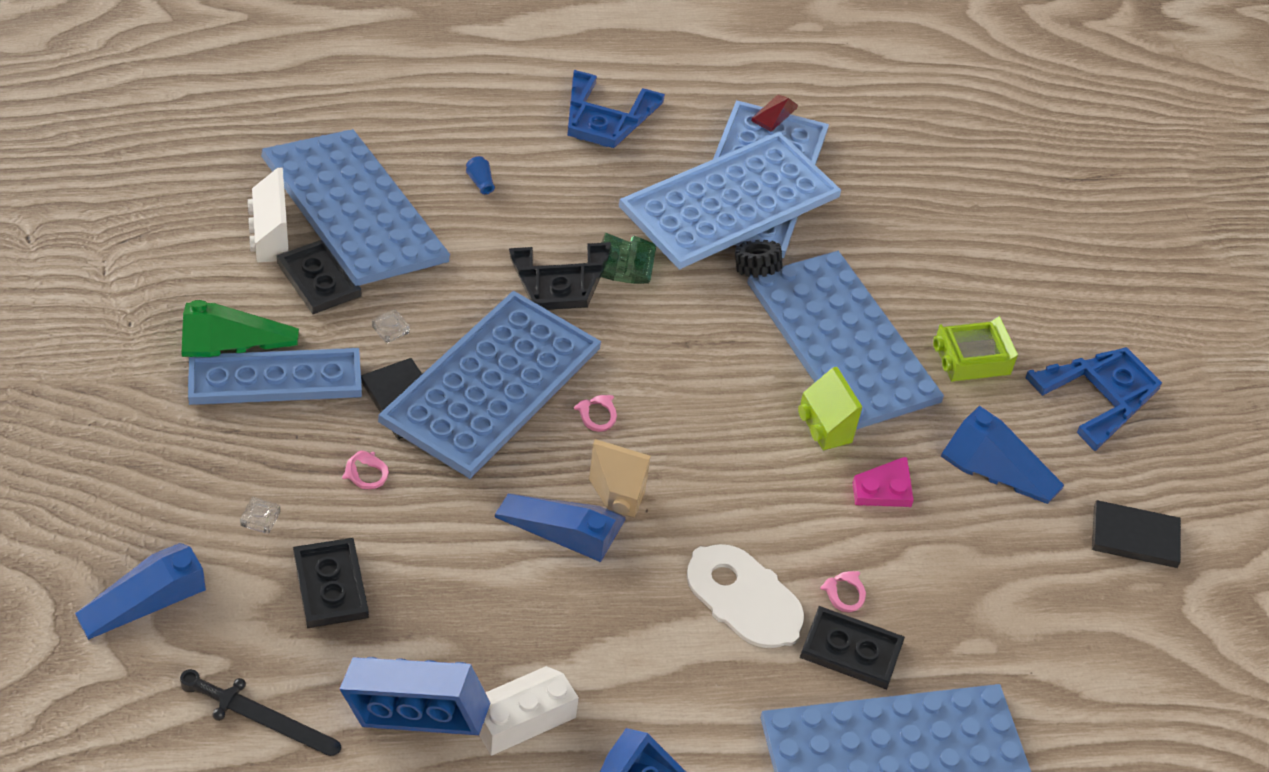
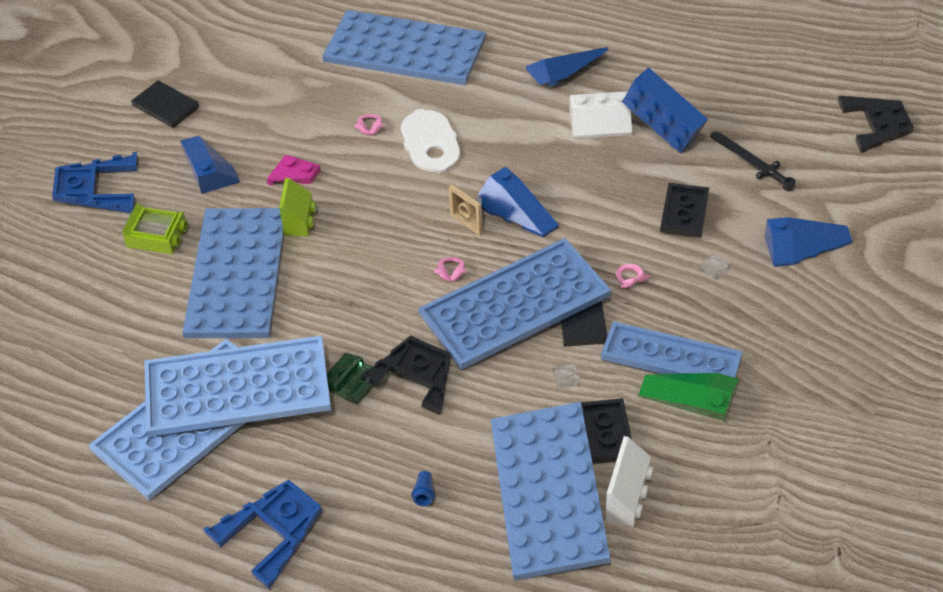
camera: 145 degrees left, 0 degrees up
(758, 258) = (250, 322): black tyre -> none
(774, 112) = (125, 463): dark red slope -> none
(852, 647) = (388, 98): black tile -> none

